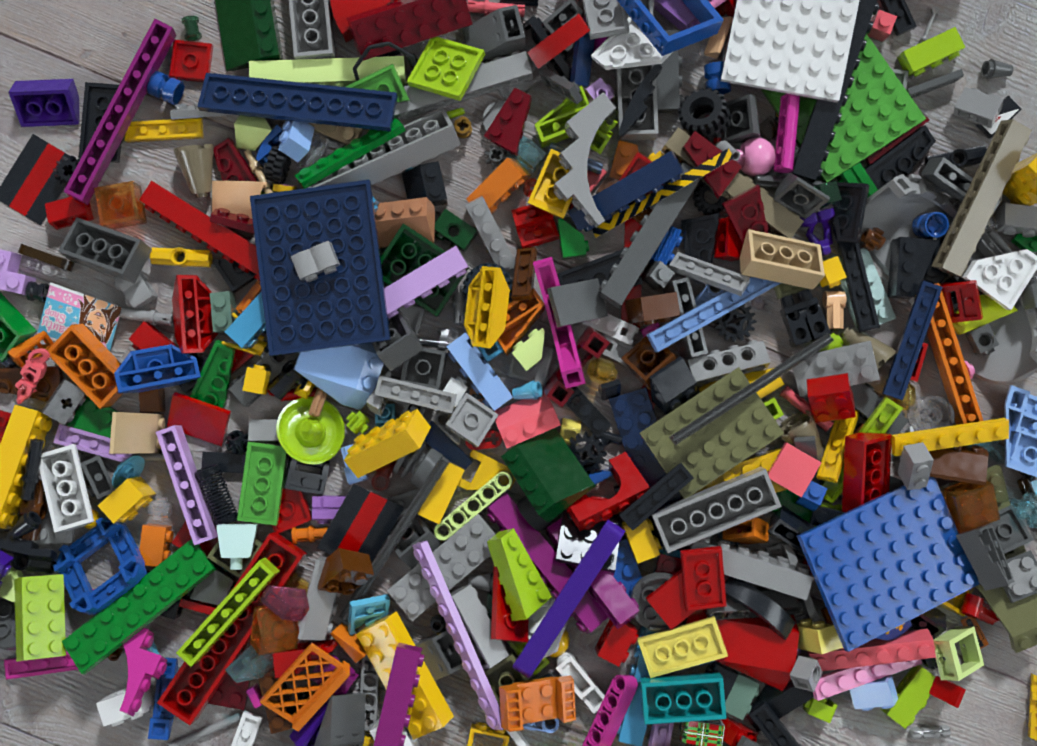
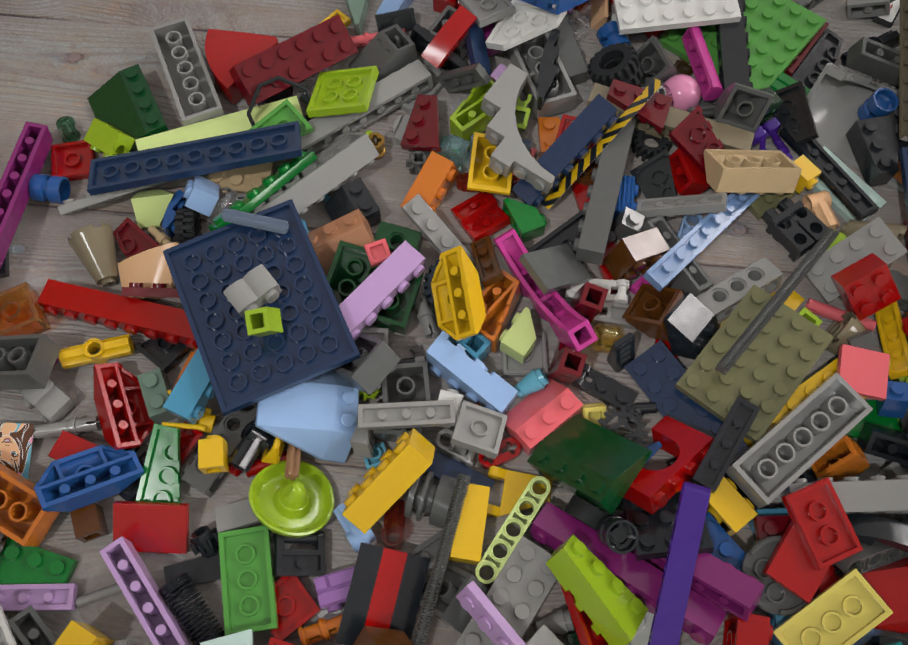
camera: 15 degrees left, 20 degrees down
(129, 468) = (76, 608): medium azure dish -> none
(135, 432) = (73, 559): tan slope -> none
(164, 130) = (51, 232): yellow tile -> none
(225, 53) = (107, 139): none -> lime brick
(317, 293) = (263, 321): none -> lime brick
(332, 193) = (255, 221): none -> sand blue axle
(357, 422) = (346, 474): lime gear -> none
(432, 245) = (377, 252): none -> coral tile
(546, 538) = (617, 534): none -> black wheel
(738, 327) = (727, 257): black gear -> none
(873, 239) = (829, 134): reddish brown gear -> none

